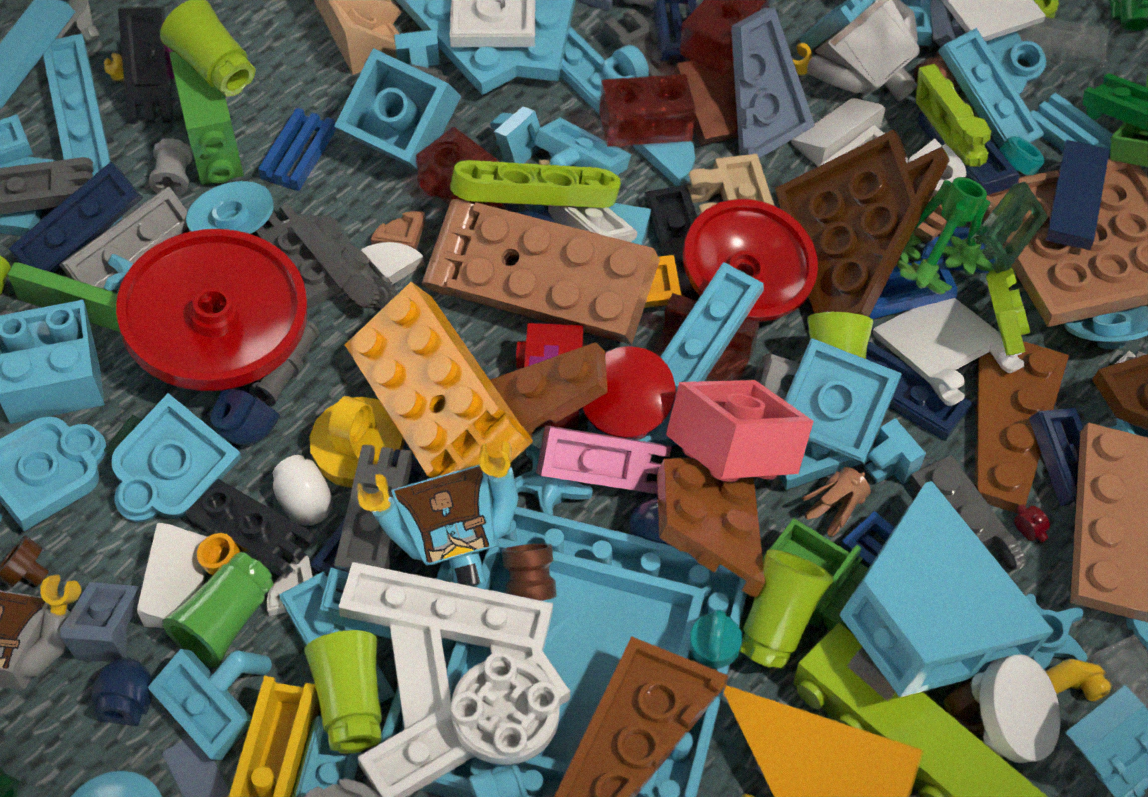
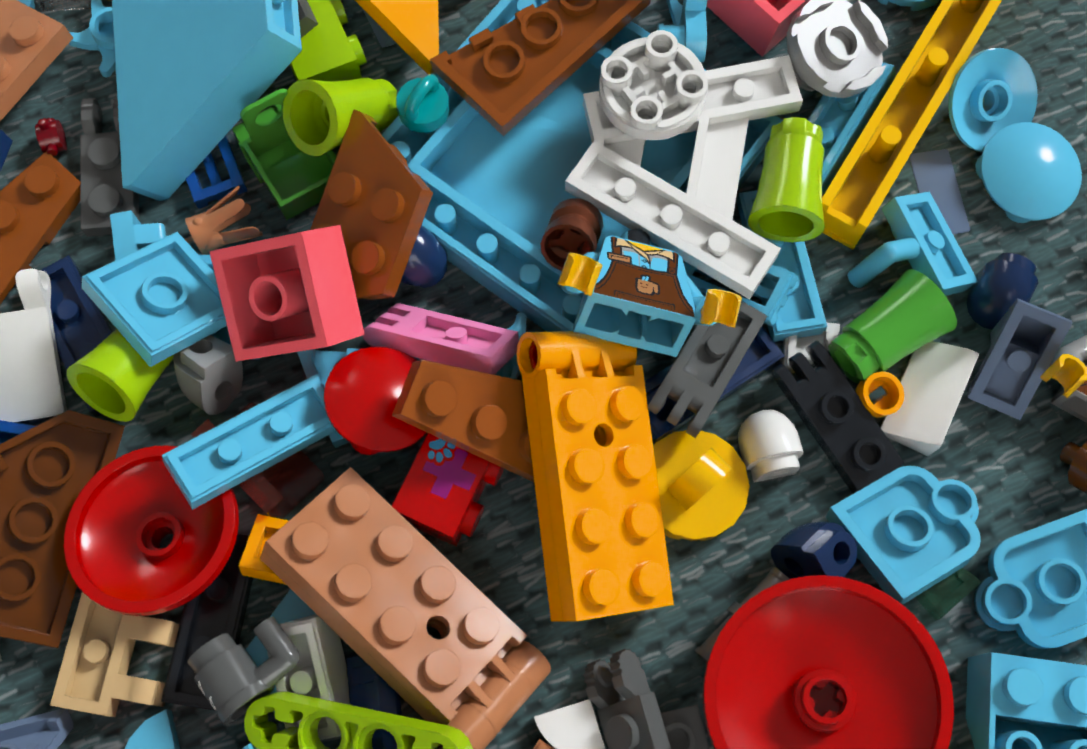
camera: 160 degrees left, 15 degrees up
(637, 198) = (232, 677): none -> dark grey piece

